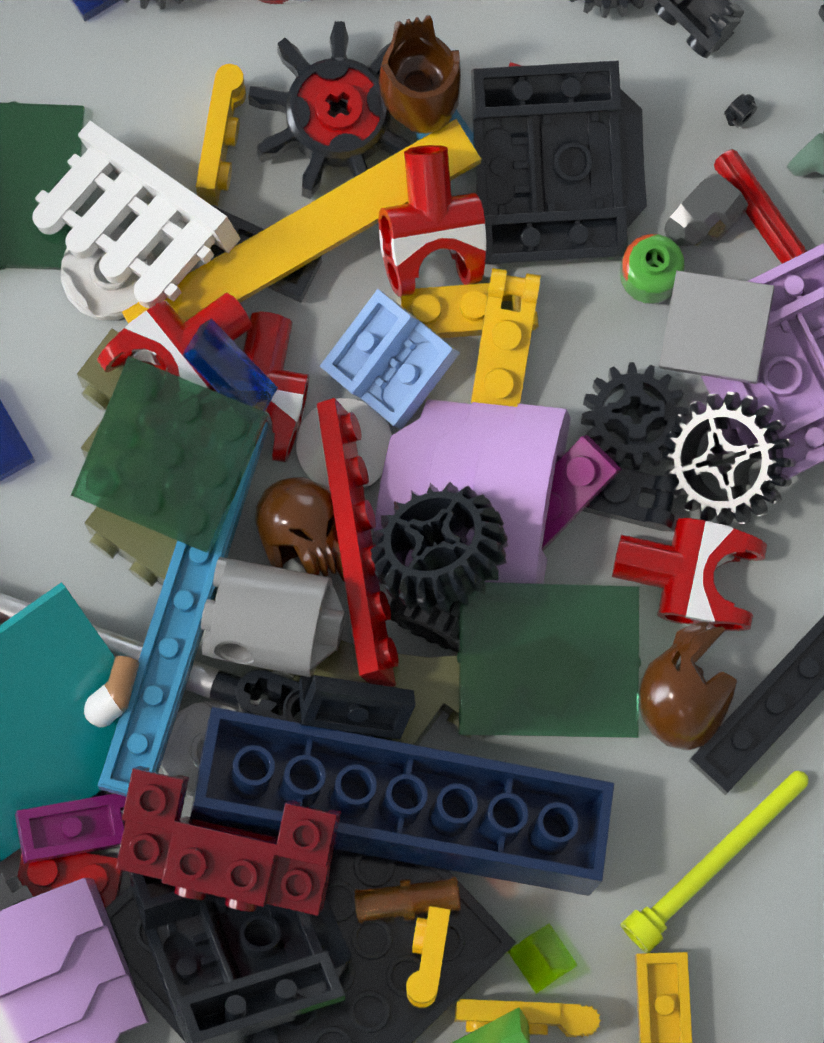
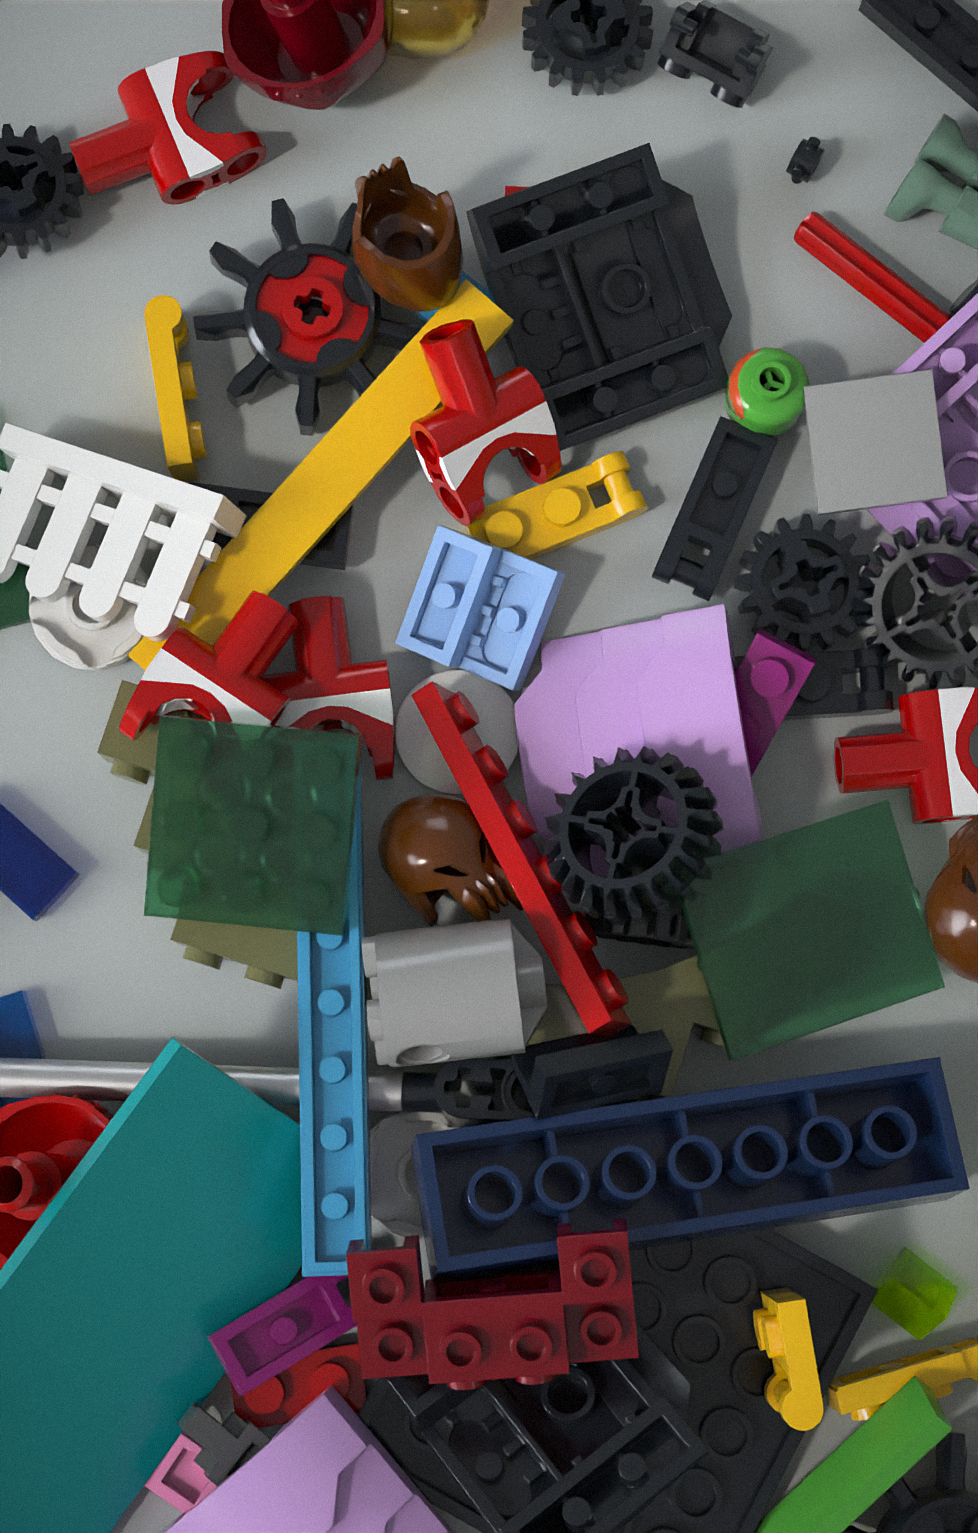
camera: 20 degrees left, 5 degrees up
(114, 696) = (286, 1154): arm -> none
(228, 367) = (290, 688): clear blue tile -> none
(406, 899) = (732, 1285): clear orange pin -> none
(505, 340) = (616, 539): yellow plate -> none
(588, 340) = (715, 506): none -> black plate
(706, 212) = (809, 301): dark grey rock -> none

